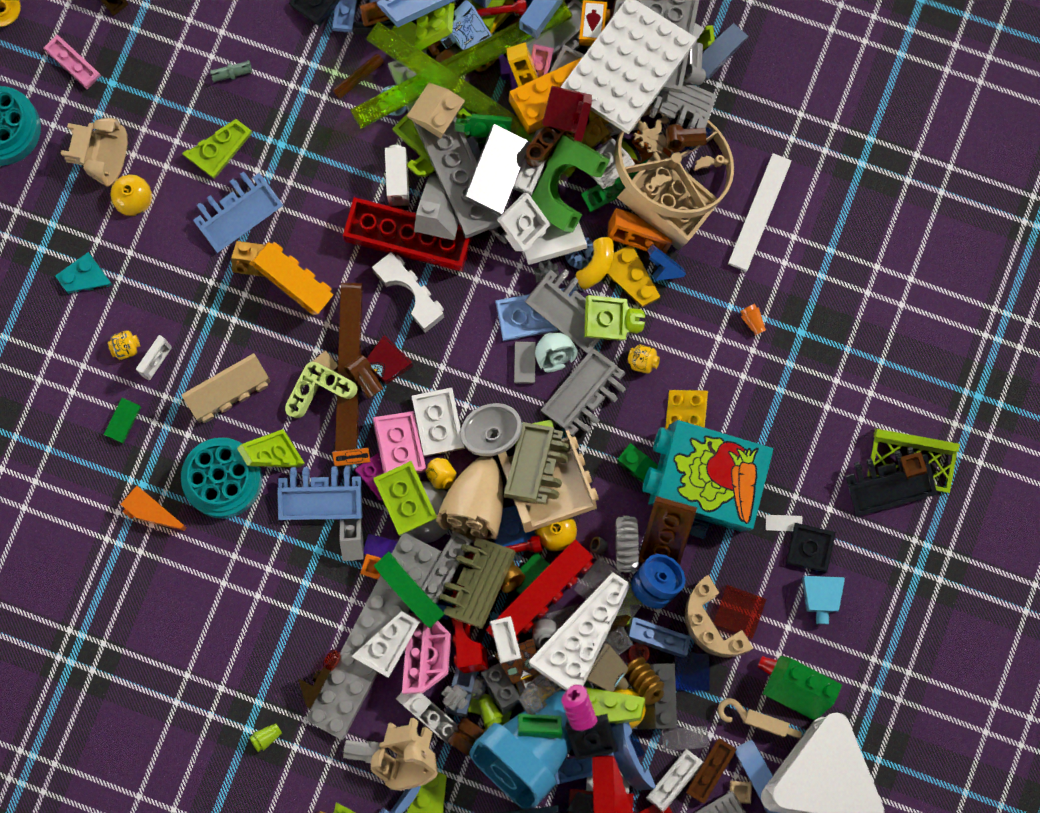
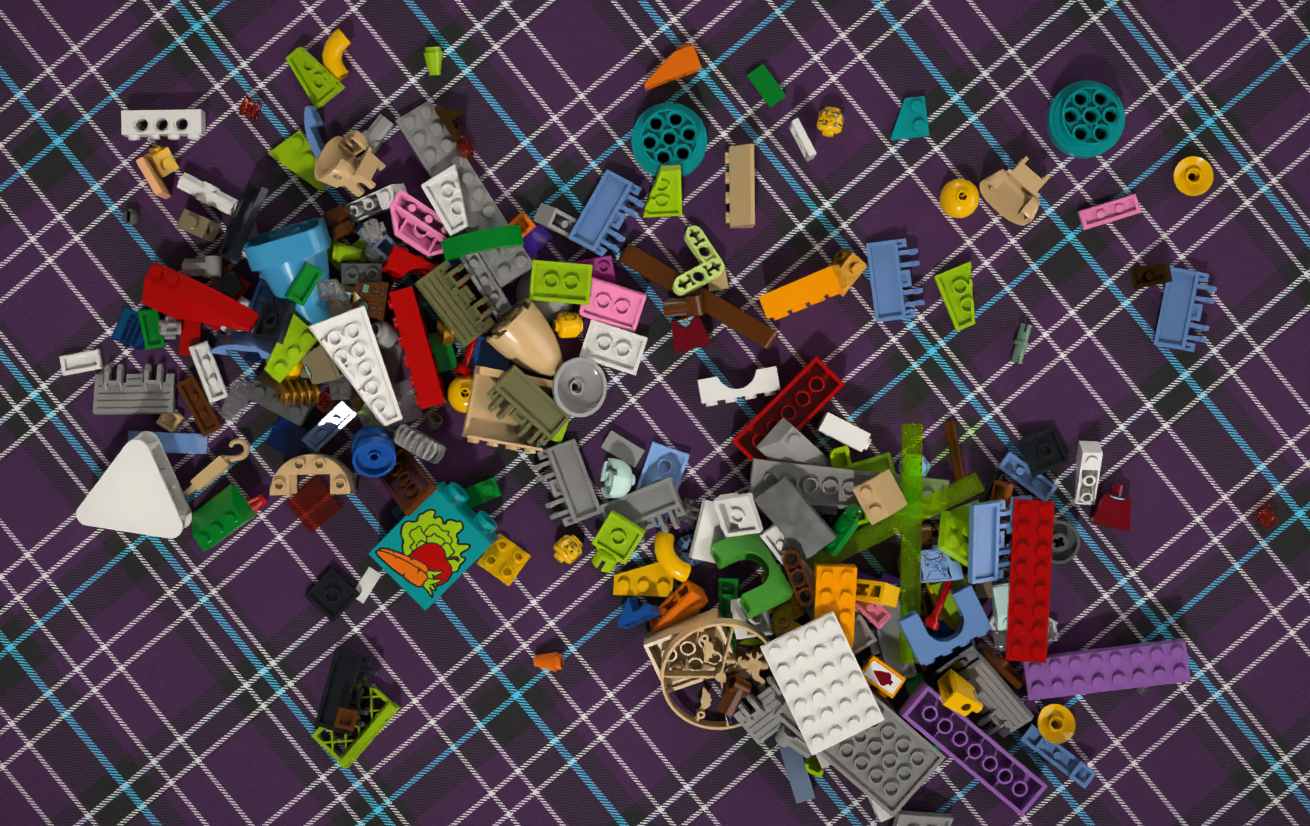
camera: 115 degrees right, 10 degrees up
(351, 457) = (623, 258): orange sticker -> none
(505, 639) = (393, 297): white tile -> none
(568, 111) = (807, 607): dark red bracket -> none
(578, 708) = (296, 322): dark pink piece -> none
(759, 212) = (638, 721): white tile -> none
(822, 596) = (286, 580): medium azure torso -> none

